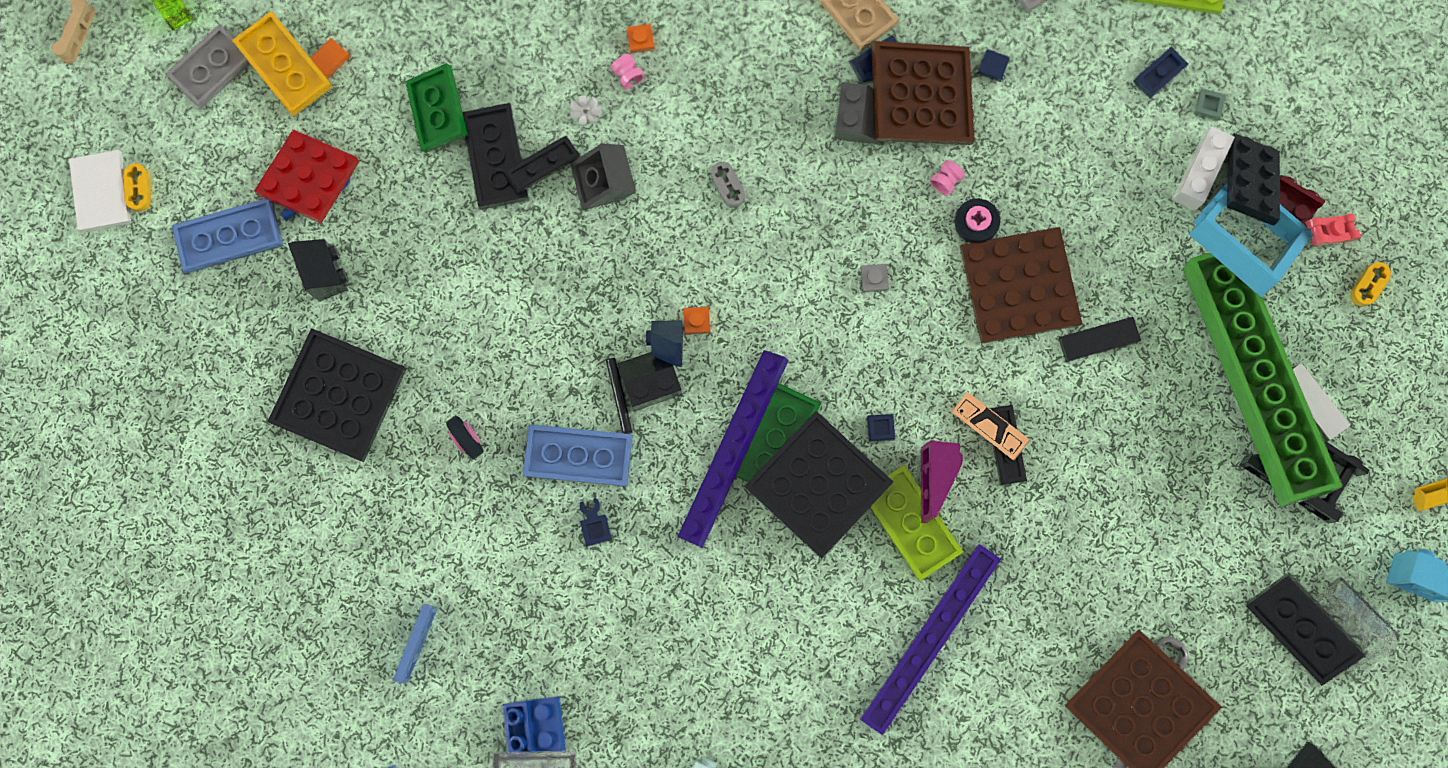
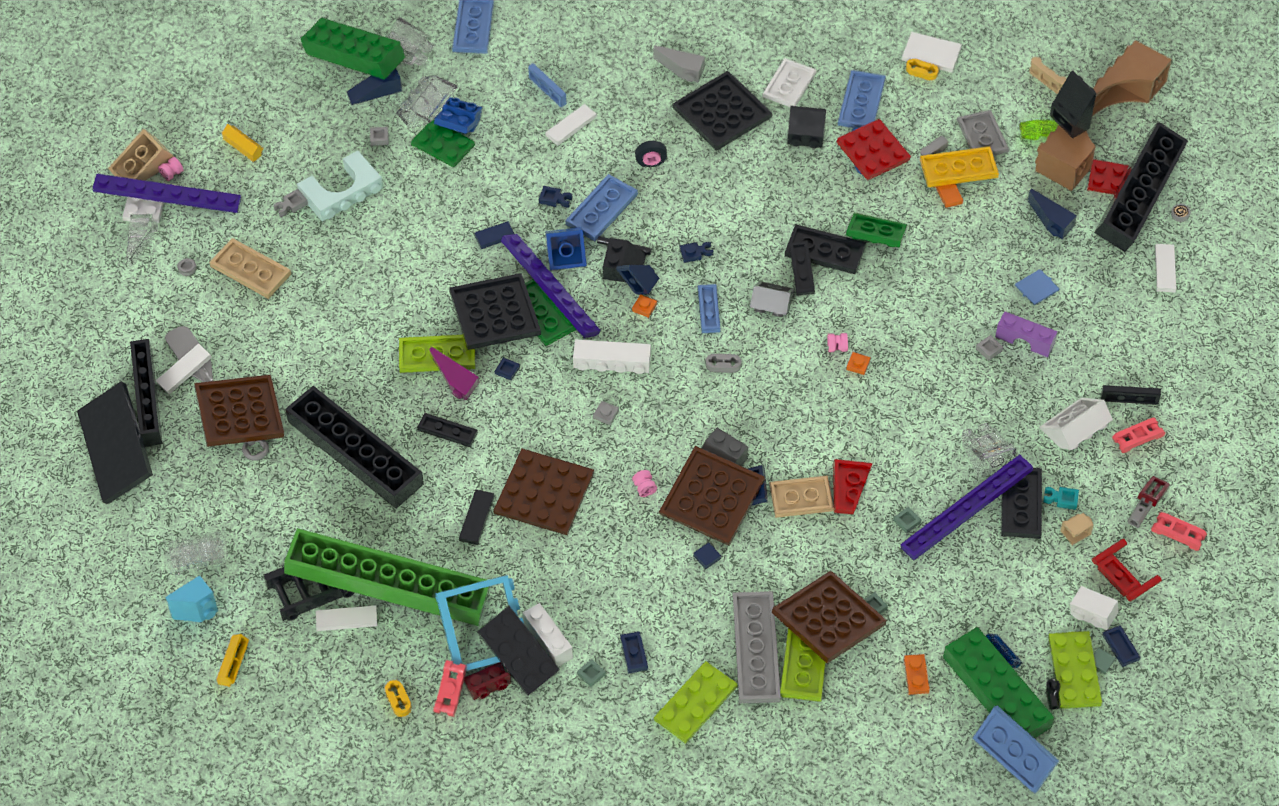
camera: 120 degrees right, 25 degrees down
(244, 338) = (789, 83): none -> white tile
(266, 109) = (935, 147): none -> light grey bar
(285, 485) = (683, 64): none -> light grey slope
(461, 575) = (571, 124): none -> white tile
(583, 309) = (693, 252): none -> dark blue plate
(585, 109) = (825, 308): white plant -> none
(586, 721) = (443, 143): none -> green plate
(657, 244) = (709, 308): none -> medium blue tile
(666, 461) = (565, 248): none -> blue slope
(693, 564) = (493, 235): none -> dark blue tile
(796, 311) = (612, 356): none -> white brick
(930, 639) = (362, 329): dark purple plate -> none
(973, 229) = (605, 493): black wheel -> none
(990, 426) = (464, 422): light nougat tile -> none
(1106, 532) = (354, 447): none -> black brick
(1305, 629) = (214, 522): black plate -> none

